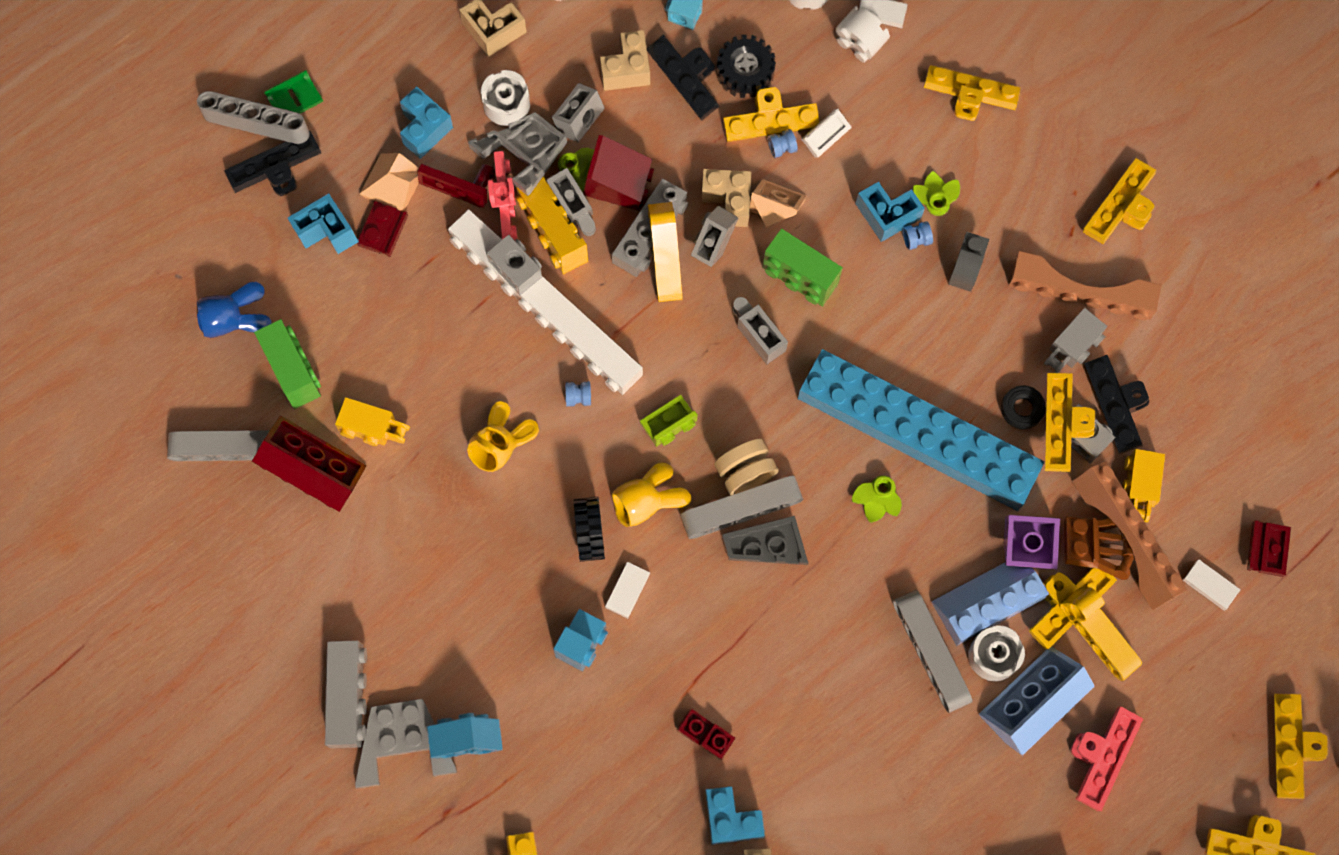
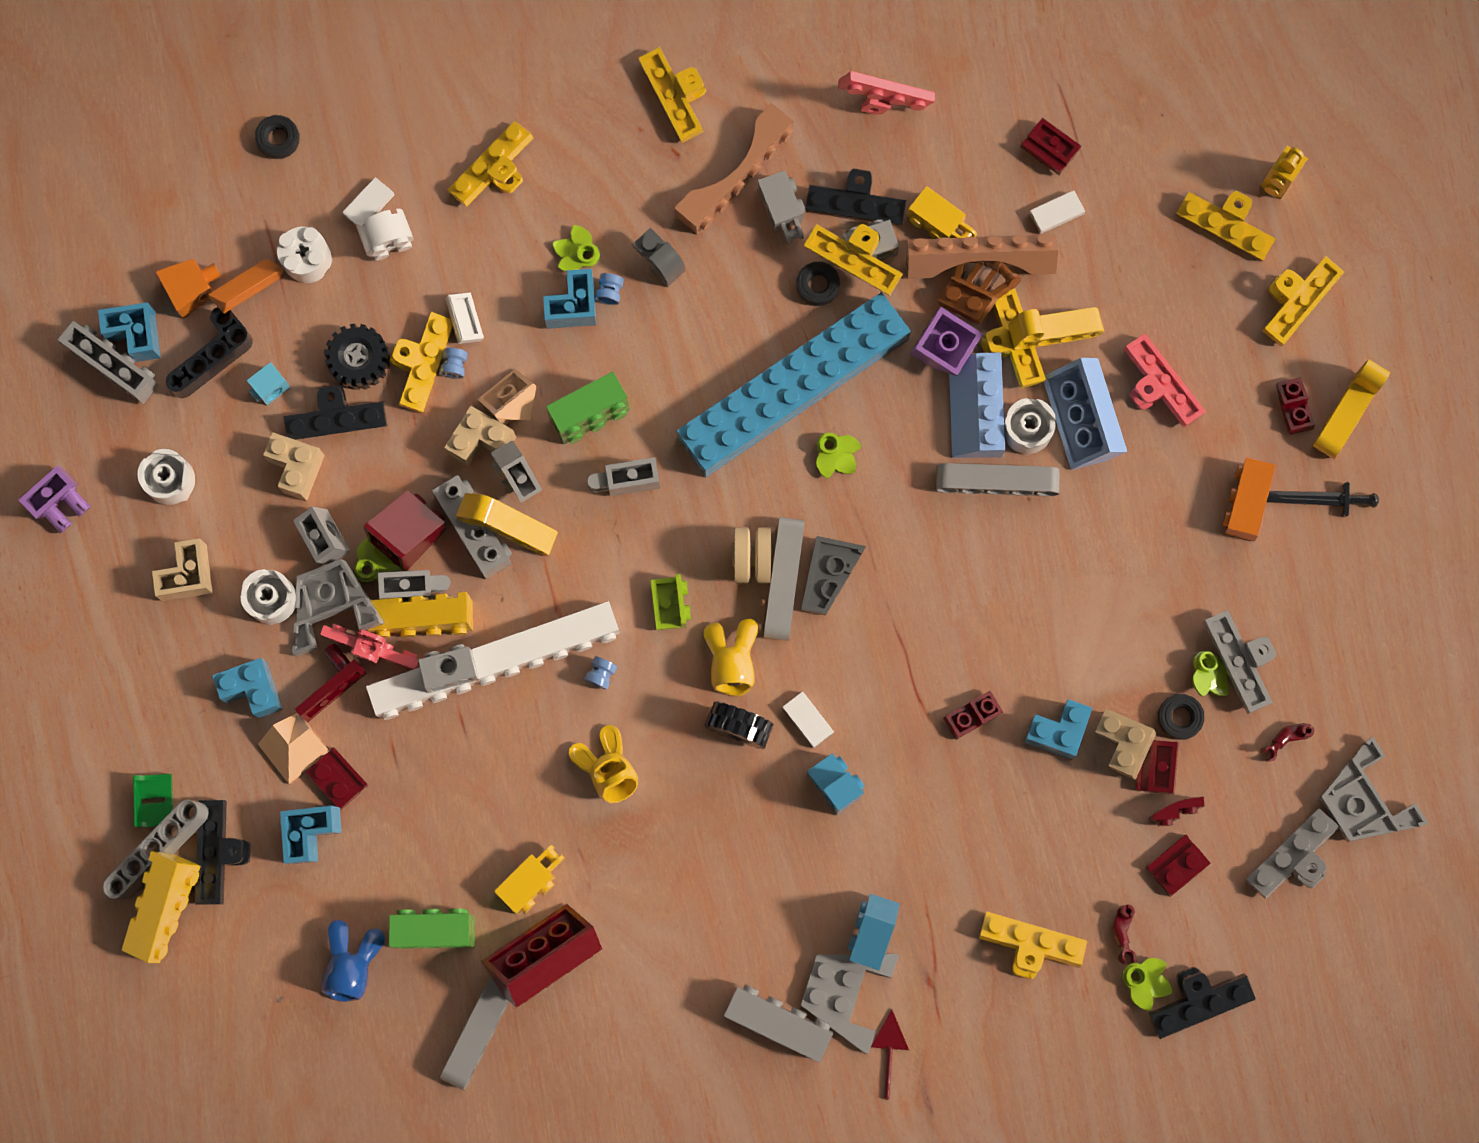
camera: 60 degrees left, 5 degrees up
(209, 142) = (160, 906): none -> yellow wedge
(379, 802) = (890, 1038): none -> dark red piece
(1227, 375) = (883, 93): none -> coral plate

